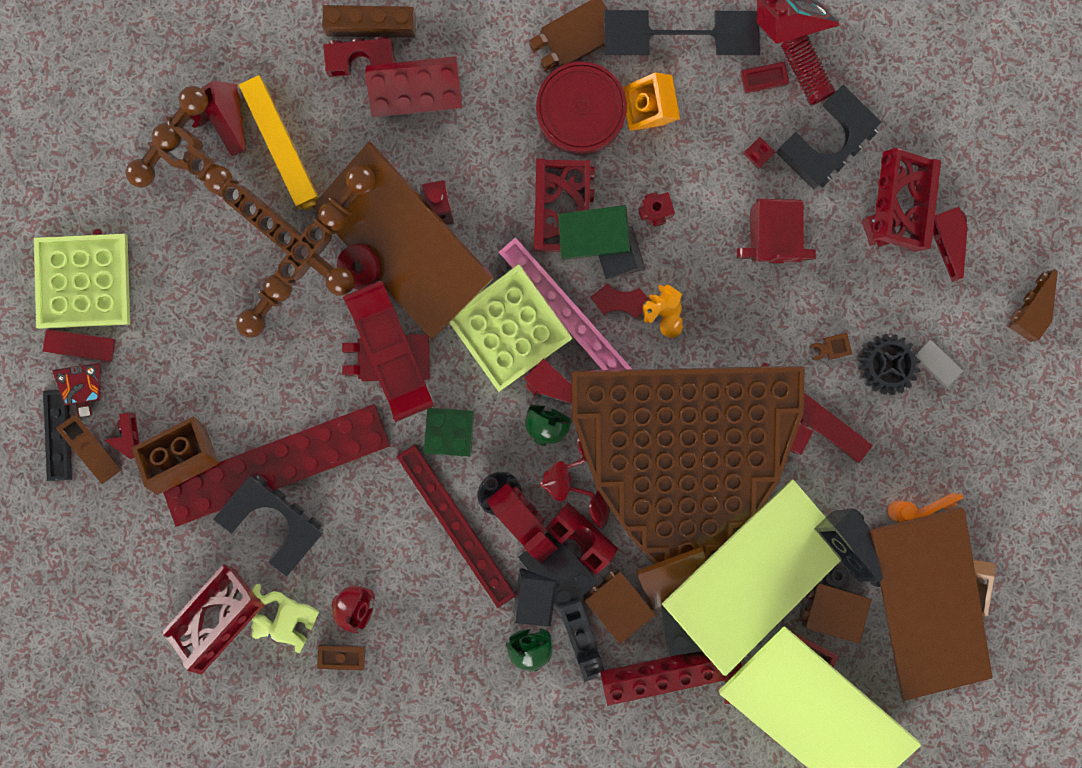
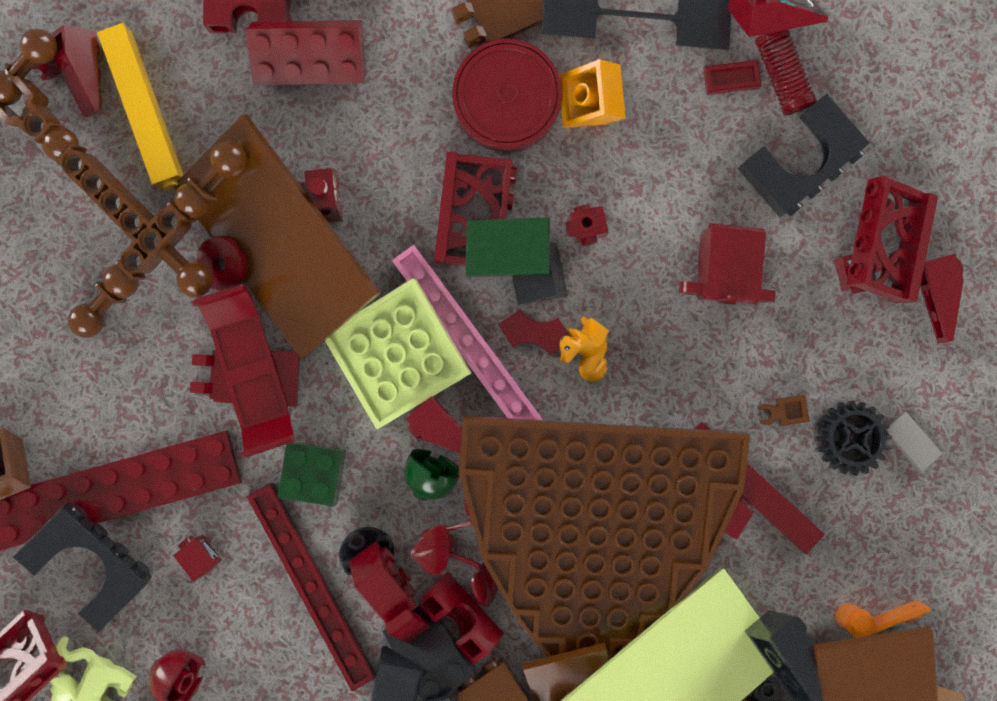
camera: 15 degrees right, 0 degrees up
(360, 509) = (196, 557): none -> dark red brick
(759, 152) = (717, 167): dark red tile -> none

